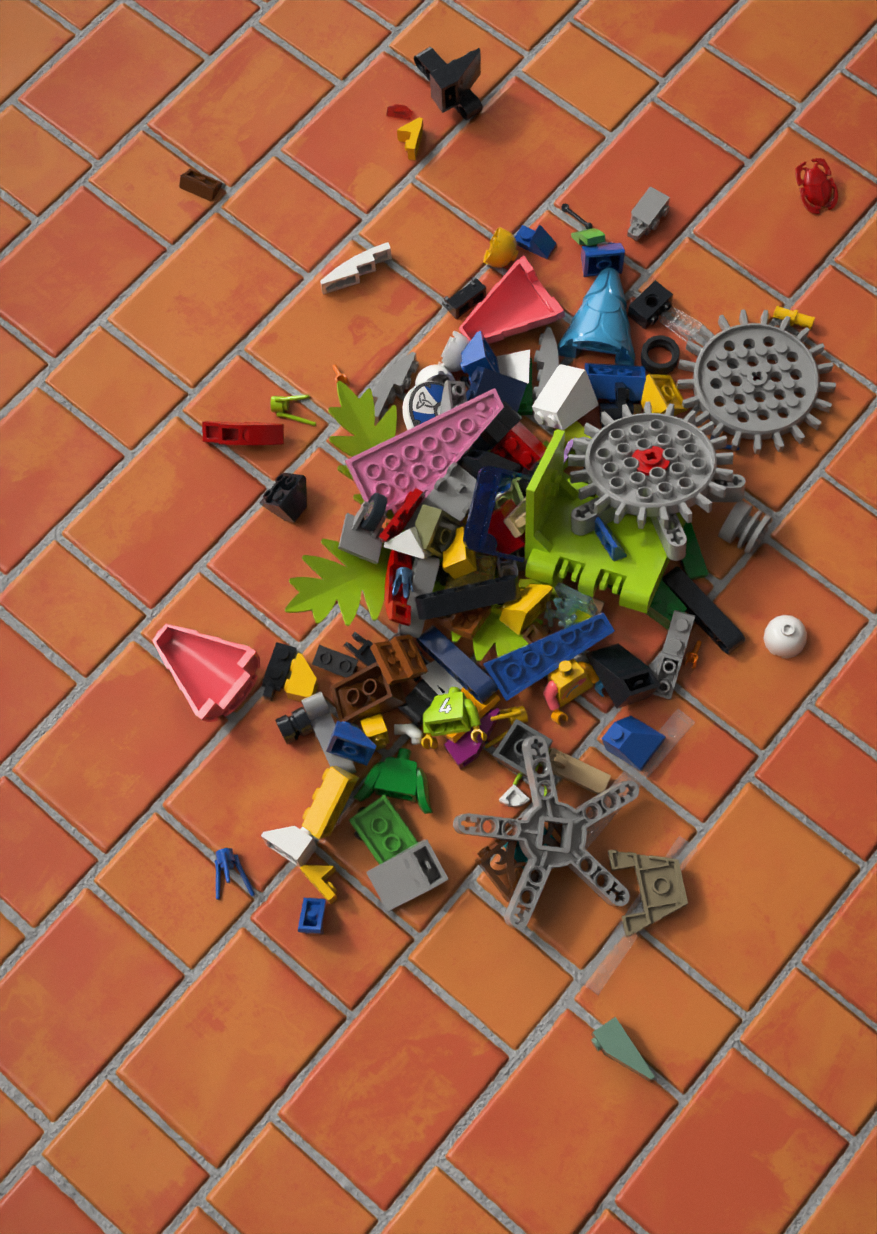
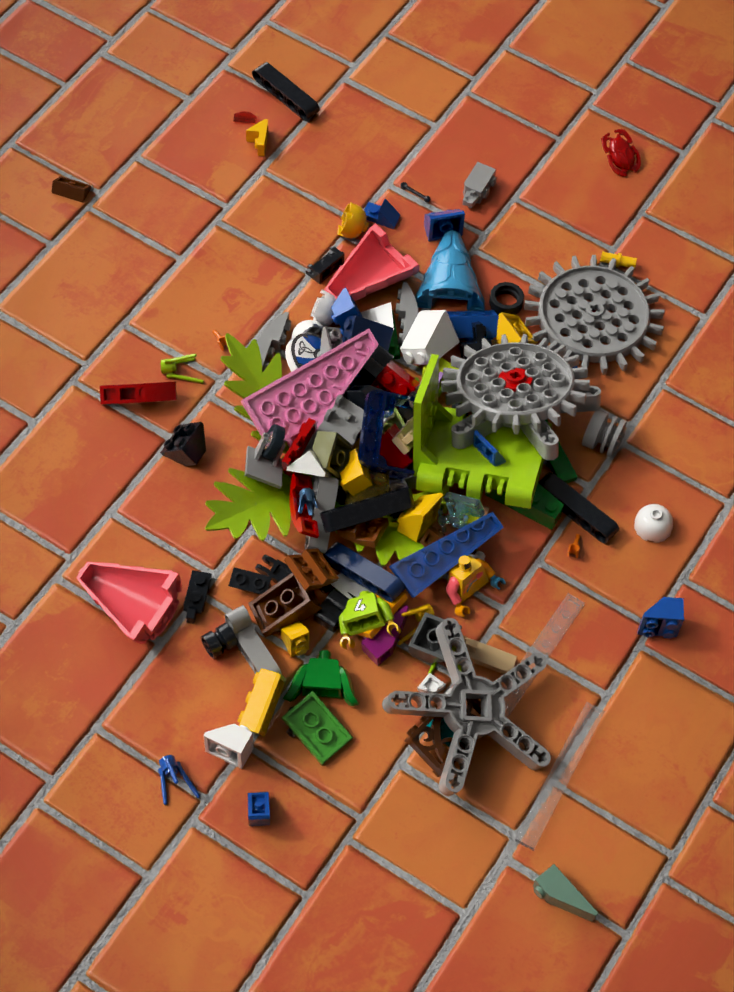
camera: 15 degrees left, 10 degrees down
(302, 680) = (221, 600): yellow slope -> none
(317, 875) = (259, 771): yellow slope -> none
(349, 272) = (219, 249): white slope -> none
(350, 743) = (276, 648): blue slope -> none
(407, 875) = (343, 760): light grey slope -> none
(410, 730) = (328, 635): white arm -> none
(454, 80) = (293, 85): black slope -> none
(589, 237) = (429, 206): bright green slope -> none
(623, 675) = (516, 568): black slope -> none
(632, 741) = (531, 624): blue slope -> none
(653, 295) = (492, 258): black brick -> none
(659, 887) = (575, 744): dark tan wing -> none
(673, 653) = (556, 546): light grey slope -> none
(677, 329) = (519, 277): clear slope -> none
(777, 751) = (663, 618): none -> blue slope

